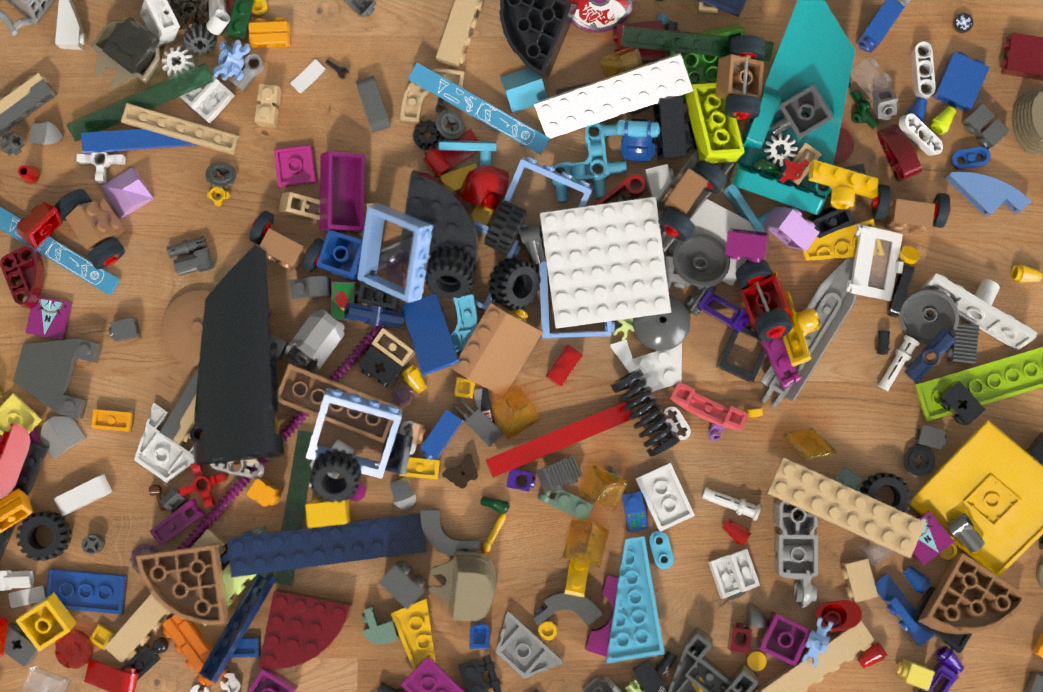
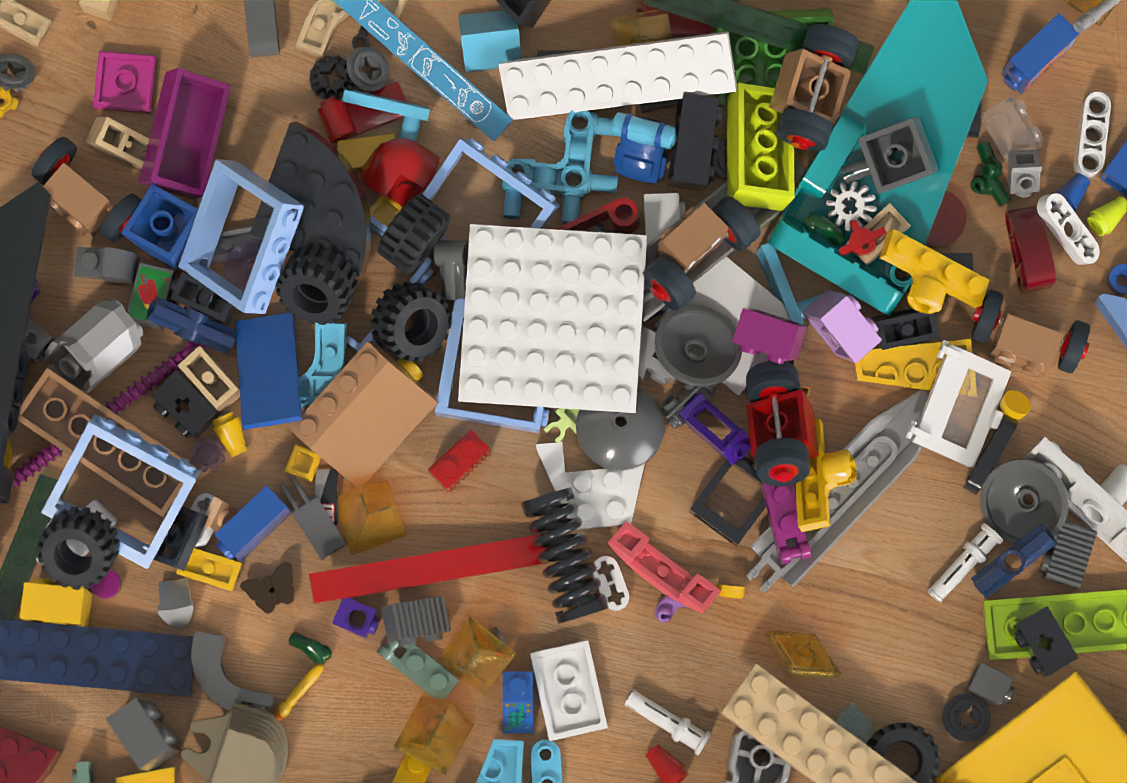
camera: 10 degrees right, 5 degrees down
(883, 342) = (948, 528): black pin -> none

